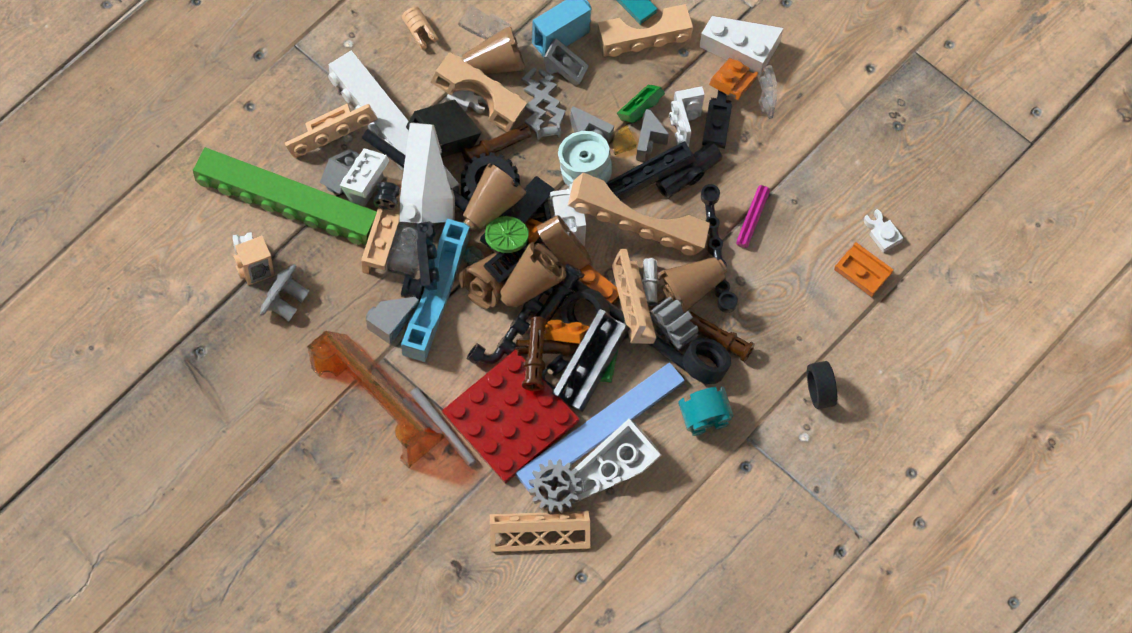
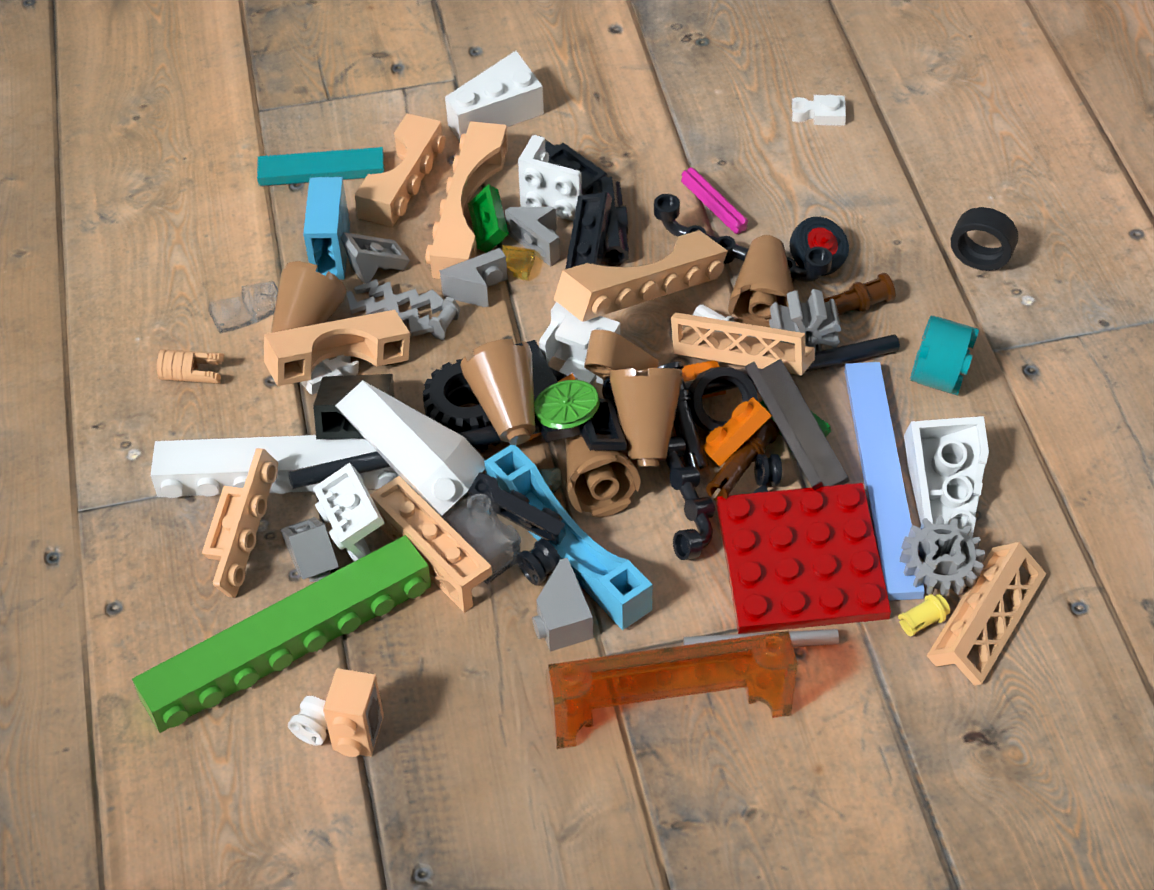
camera: 50 degrees left, 15 degrees down
(283, 282) = (412, 712): light grey connector -> none
(386, 196) = (400, 501): black wheel -> none
(497, 143) = (412, 385): reddish brown pin -> none
(515, 499) = (926, 613): none -> light yellow pin
(534, 364) = (761, 478): reddish brown pin -> none
(586, 154) = (519, 296): light aqua wheel -> none
(688, 66) = (480, 157): none -> light nougat arch
(701, 371) = (875, 323): black tyre -> none
(733, 78) = (525, 124): orange plate -> none
(753, 295) = (819, 233): none -> black wheel
(769, 91) = (570, 104): clear slope -> none
(863, 269) = (857, 143): orange plate -> none

